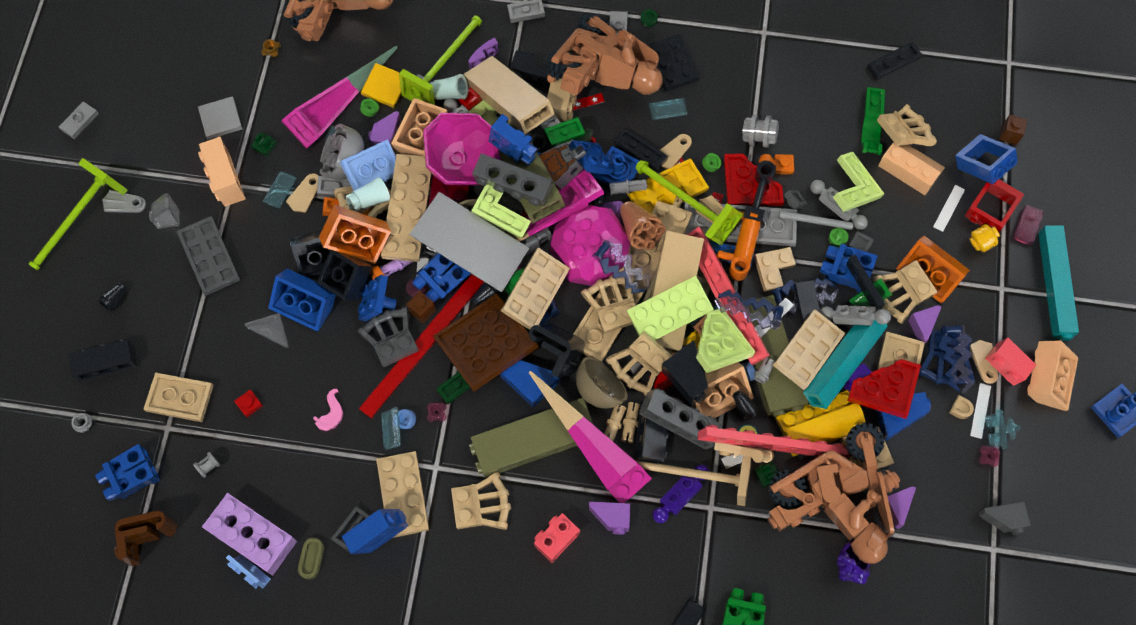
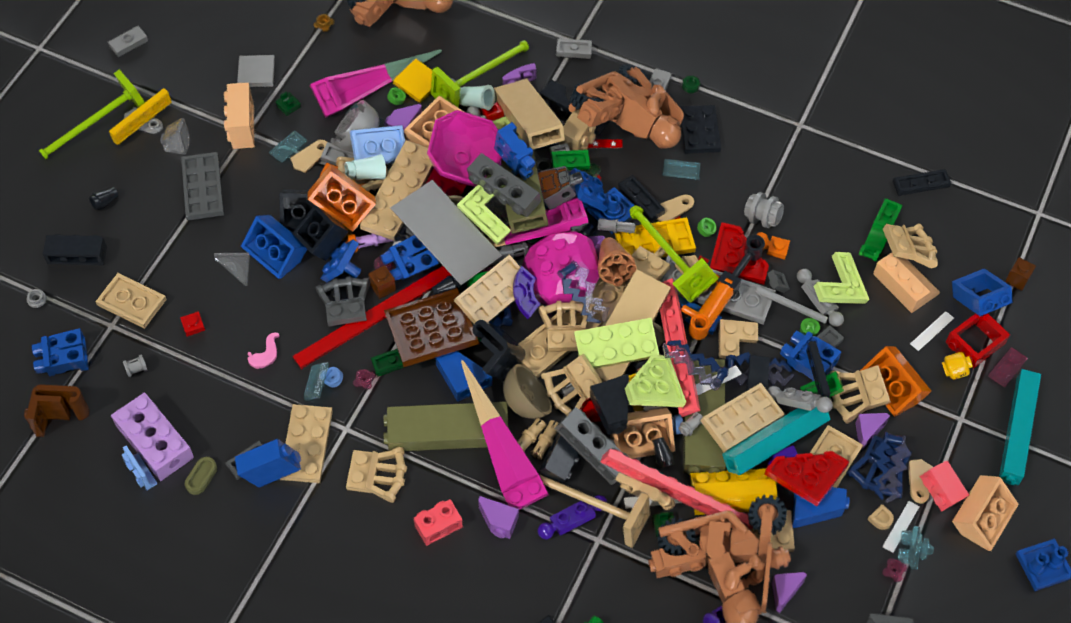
camera: 15 degrees right, 10 degrees down
(120, 200) = (140, 116): none -> yellow tile
(563, 281) = (523, 292): none -> dark purple tile

